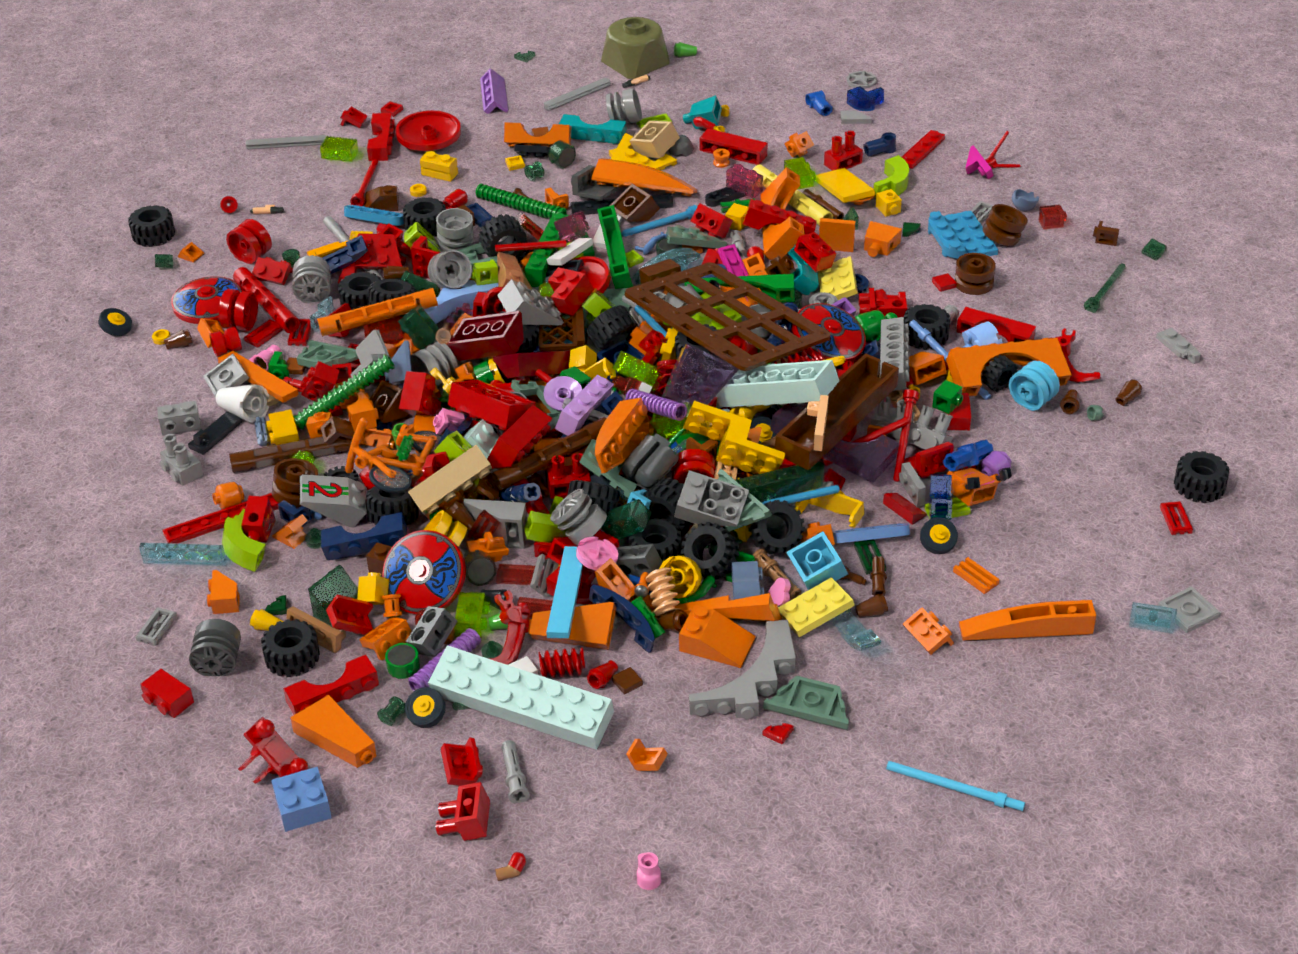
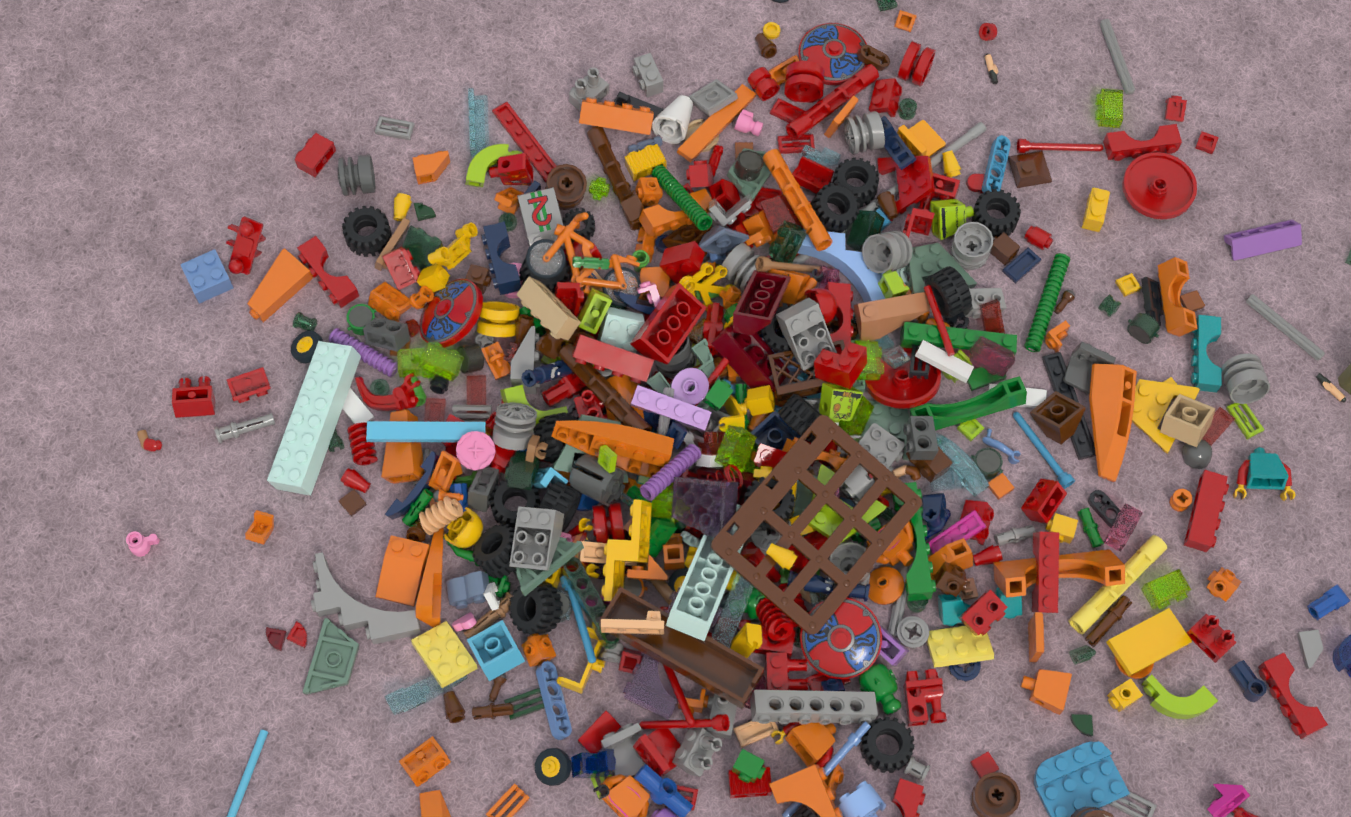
camera: 80 degrees right, 25 degrees up
(223, 439) = (616, 116): none -> orange brick
(225, 272) = (873, 57): none -> reddish brown beam
(228, 495) = (552, 140): orange head -> none
(278, 366) = (734, 134): green bracket -> none
(288, 291) = (839, 119): none -> orange tile
(322, 347) = (748, 165): none -> piece
(354, 569) = (457, 250): none -> yellow plate
(418, 190) = (1055, 199): yellow tile -> none
(481, 582) = (441, 361): none -> clear neon green brick
(608, 503) = (534, 447): none -> medium nougat tile
(638, 434) = (607, 458): none -> lime tile
(646, 264) = (925, 437): none -> dark grey brick
(692, 237) = (1008, 482): sand green wing -> none
(762, 327) = (782, 556): none -> yellow cone
(763, 560) = (491, 596): none -> white tile
(780, 751) = (276, 637): none -> dark red tile
(913, 124) = (1303, 719): none -> red arch
(923, 148) = (1257, 732): red plate -> none

